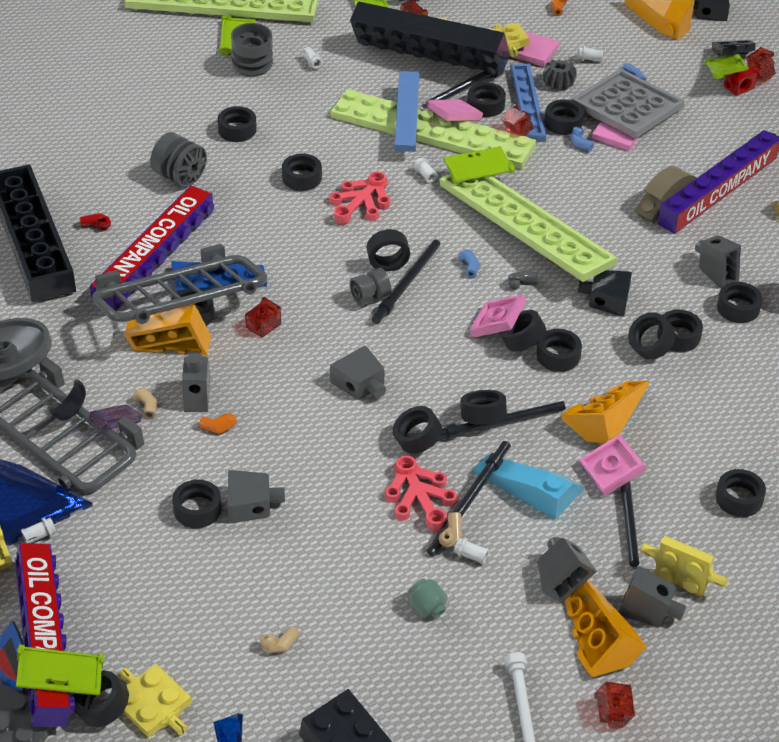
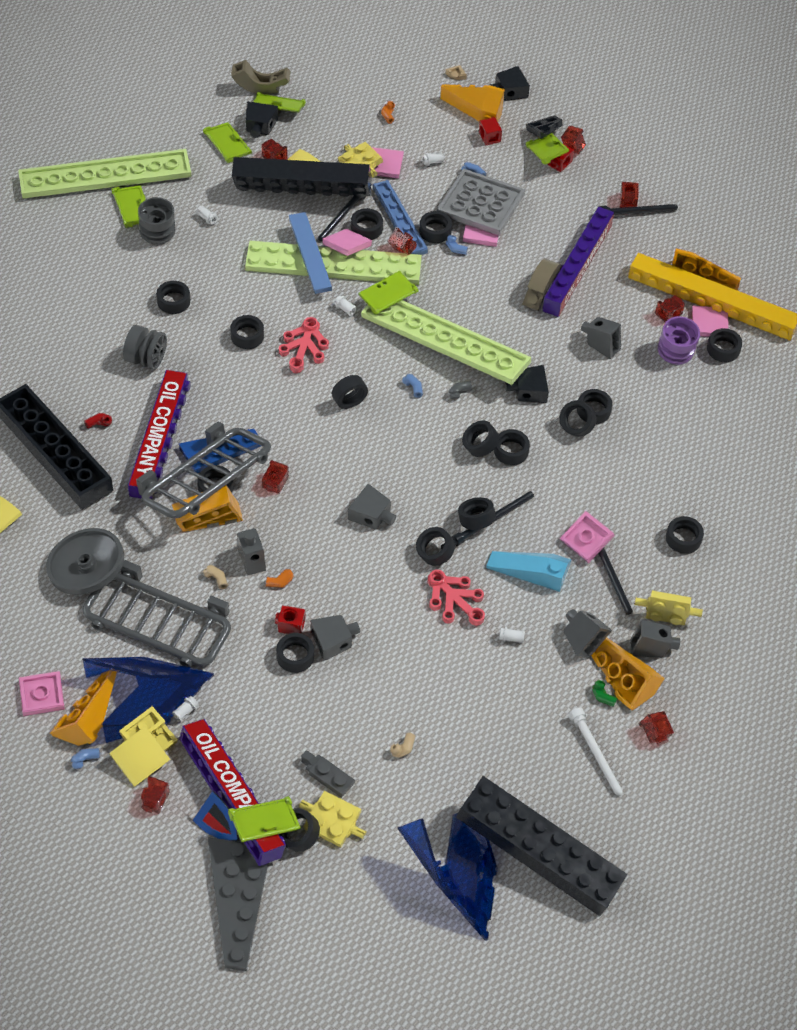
camera: 20 degrees left, 10 degrees up
(71, 403) = (162, 595): black helmet -> none
(109, 417) = (199, 596): clear purple tile -> none
(172, 647) = (327, 773): none -> dark grey hinge
(208, 466) = (290, 613): none -> red brick
(370, 286) = (348, 427): dark grey wheel -> none
(387, 305) = (365, 441): black bar -> none
(427, 598) = (497, 683): sand green head -> none
(453, 532) = (494, 623): tan arm -> none
(493, 463) = (502, 559): black bar -> none
(498, 315) = (456, 429): bright pink tile -> none
(558, 647) = (601, 695): none -> green arm
(559, 74) = (416, 185): dark grey gear -> none
(605, 414) = (566, 494): light orange wedge -> none
(667, 40) = (490, 131): none -> red brick
(737, 313) = (629, 359): black tyre -> none

